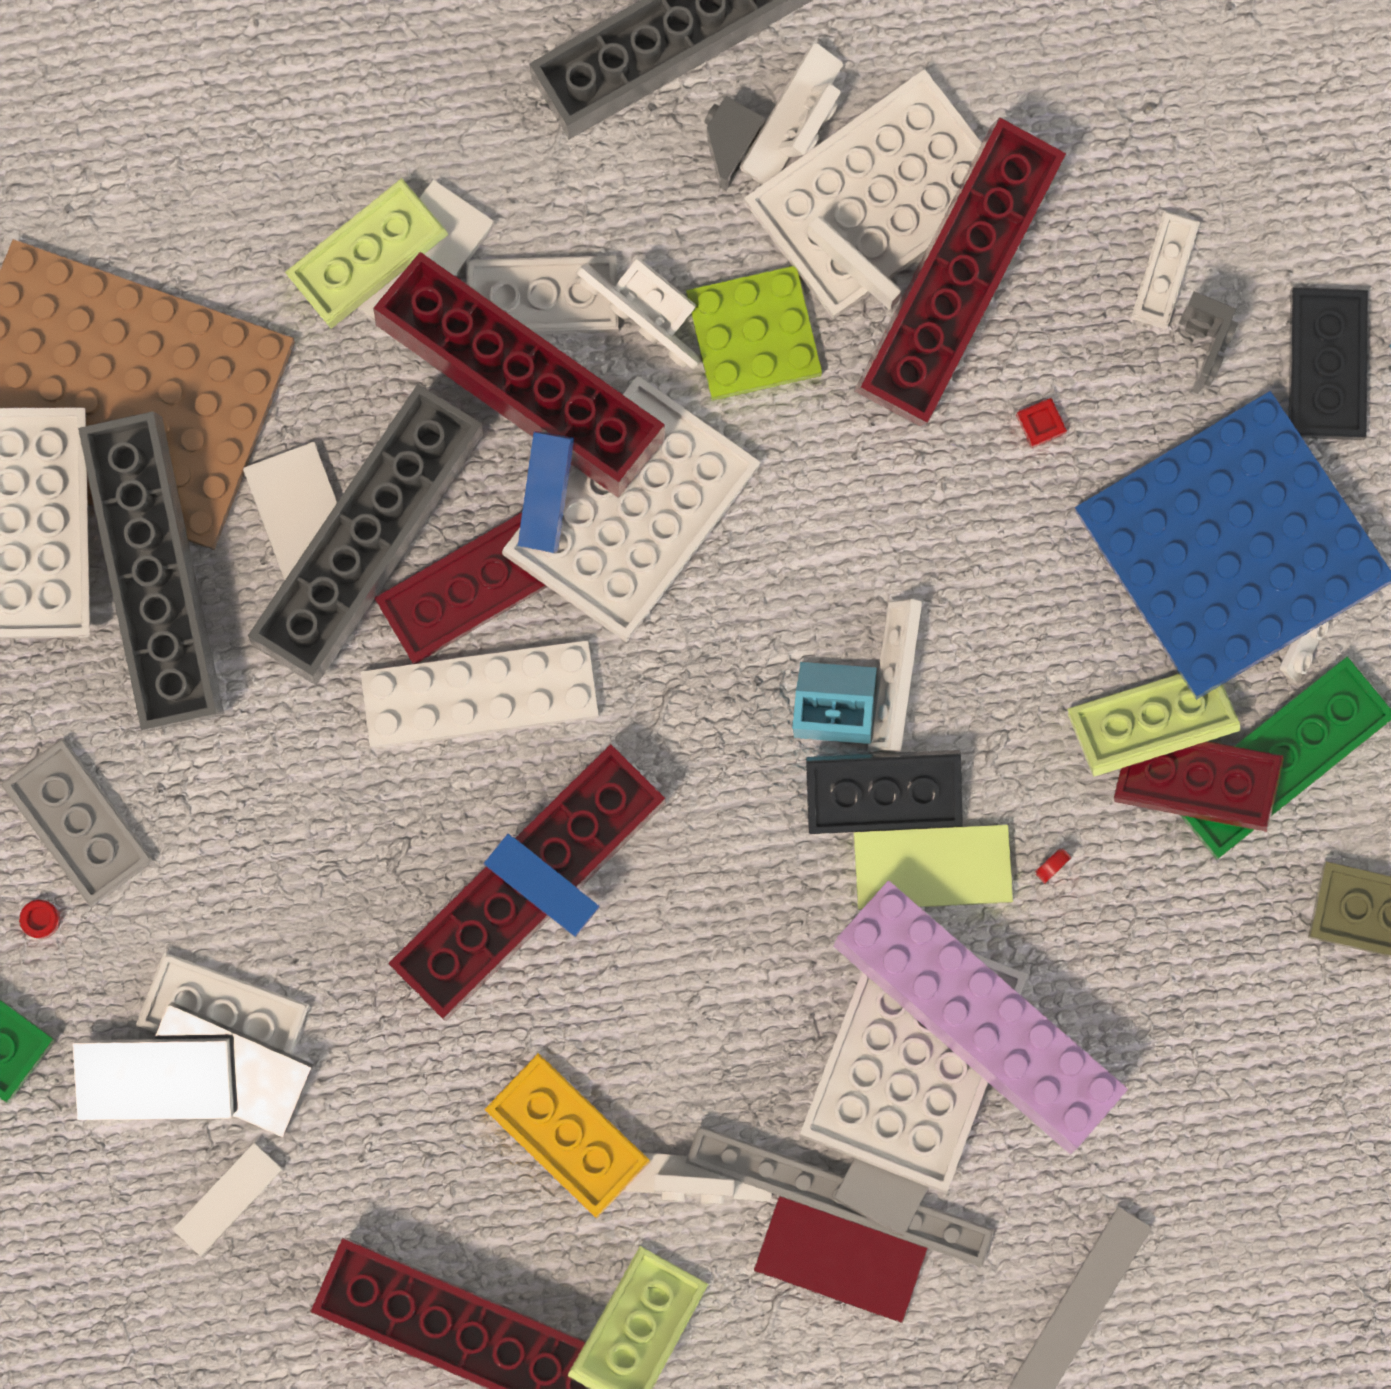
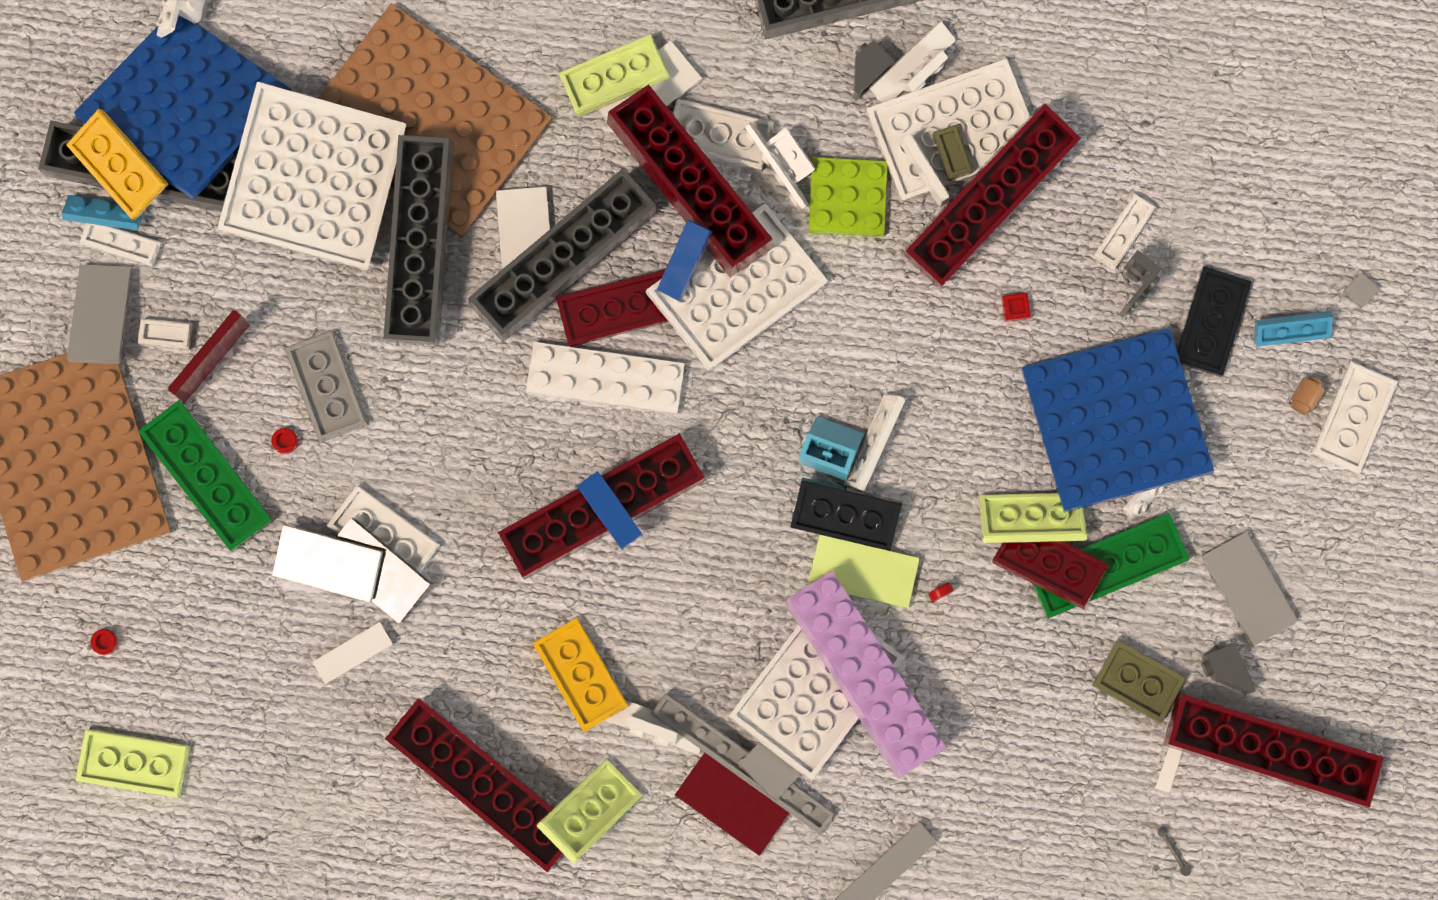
camera: 10 degrees right, 0 degrees up
(886, 226) = (952, 152): none -> olive tile

